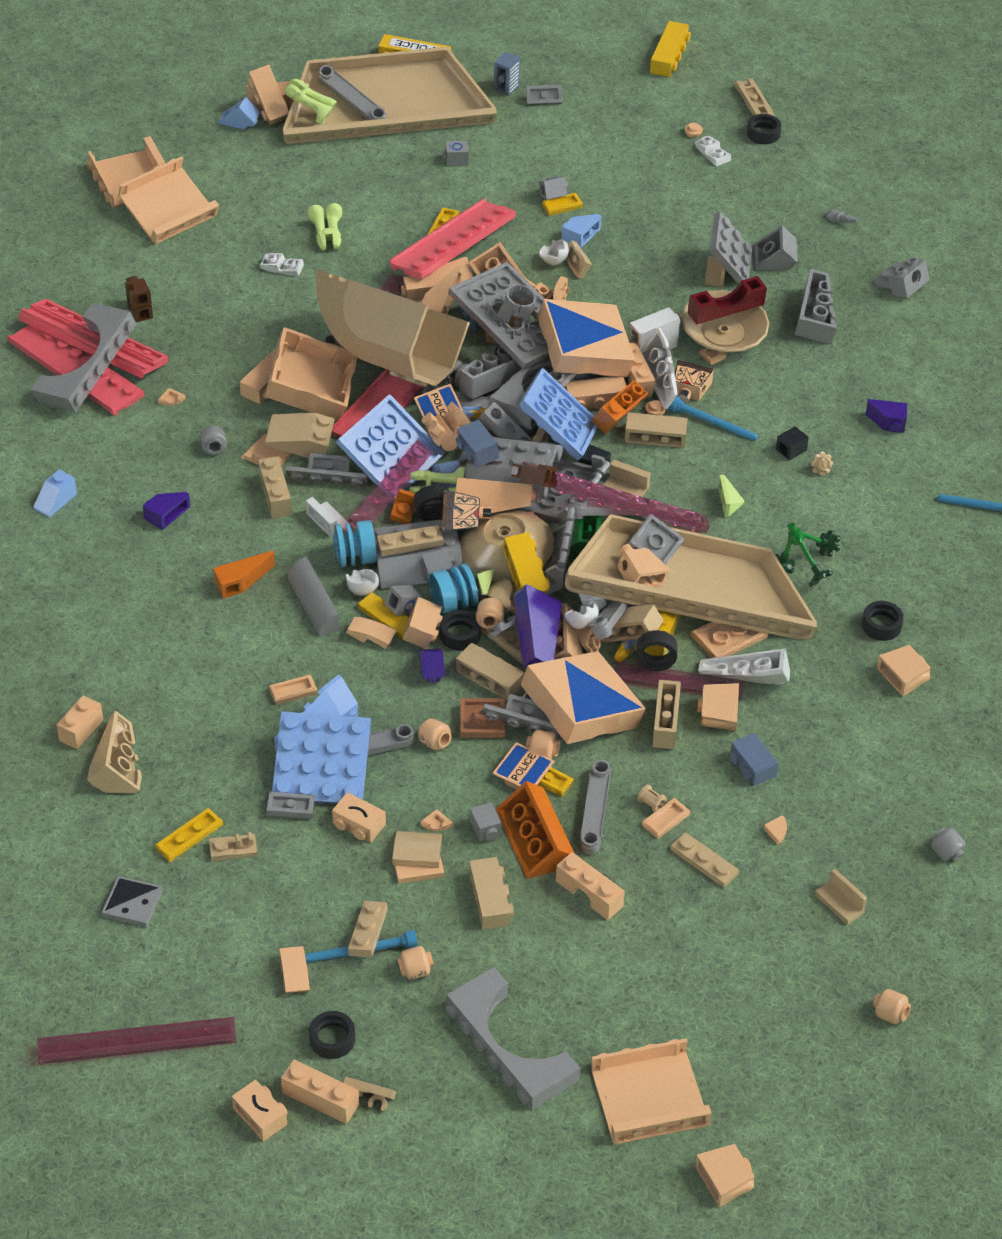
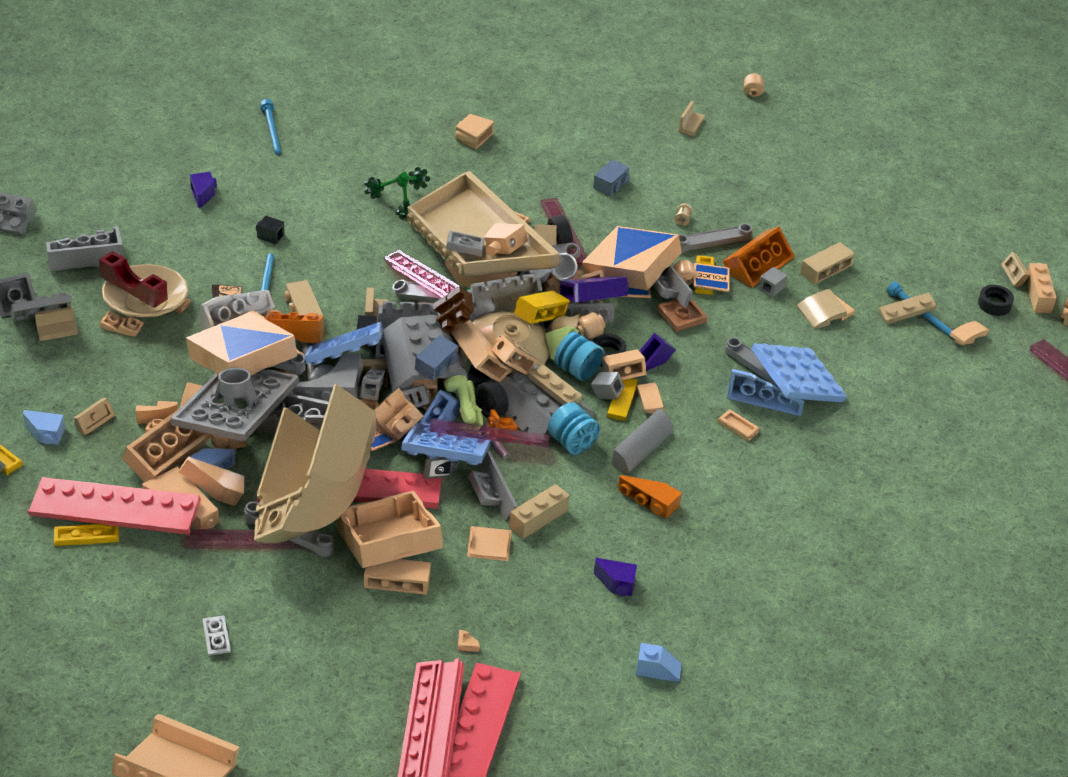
camera: 120 degrees left, 5 degrees down
(72, 388) = (522, 705): light grey arch -> none
(80, 722) = (882, 527): light nougat brick -> none
(113, 762) = (902, 489): tan wedge -> none
(132, 901) = (995, 436): light grey tile -> none
(138, 299) = (353, 713): reddish brown hips -> none
(188, 834) = (915, 430): yellow tile -> none
(213, 440) = (509, 578): light grey head -> none
(233, 847) = (904, 402): tan plate -> none
(290, 805) = (846, 381): light grey plate -> none
(300, 433) = (464, 513): tan slope -> none
(324, 516) = (544, 471): white panel -> none
(333, 215) = (156, 610): yellowish green piece -> none
(358, 817) = (826, 343): light nougat brick -> none
(362, 582) = (606, 417): white hair -> none
(415, 963) = (911, 278): light nougat head -> none
(434, 734) = (719, 329): light nougat head -> none
(436, 821) = (789, 311): light nougat tile -> none
(437, 561) = (563, 368): light grey brick -> none
(489, 671) = (636, 320): tan brick -> none
(532, 1078) = (919, 244): light grey arch -> none
(555, 253) = (93, 431): white hair -> none
(604, 895) = (783, 214): light nougat arch -> none
(644, 328) = (182, 323): white brick -> none
(649, 1091) = (902, 161): light nougat panel -> none
(665, 818) = (699, 210): light nougat tile -> none
(666, 714) = (605, 220): tan brick -> none
(704, 859) = (709, 183): tan plate -> none
(719, 706) = (578, 200): light nougat torso -> none
(725, 1173) = (923, 121): light nougat torso -> none
(729, 496) = (357, 250): yellowish green slope -> none
(756, 667) = (533, 190): white wedge -> none
(776, 829) = (657, 159): light nougat tile -> none
(821, 463) = (283, 210): tan plant -> none
(879, 632) = (433, 142): black tyre -> none
(948, 844) = (612, 87): light grey head -> none

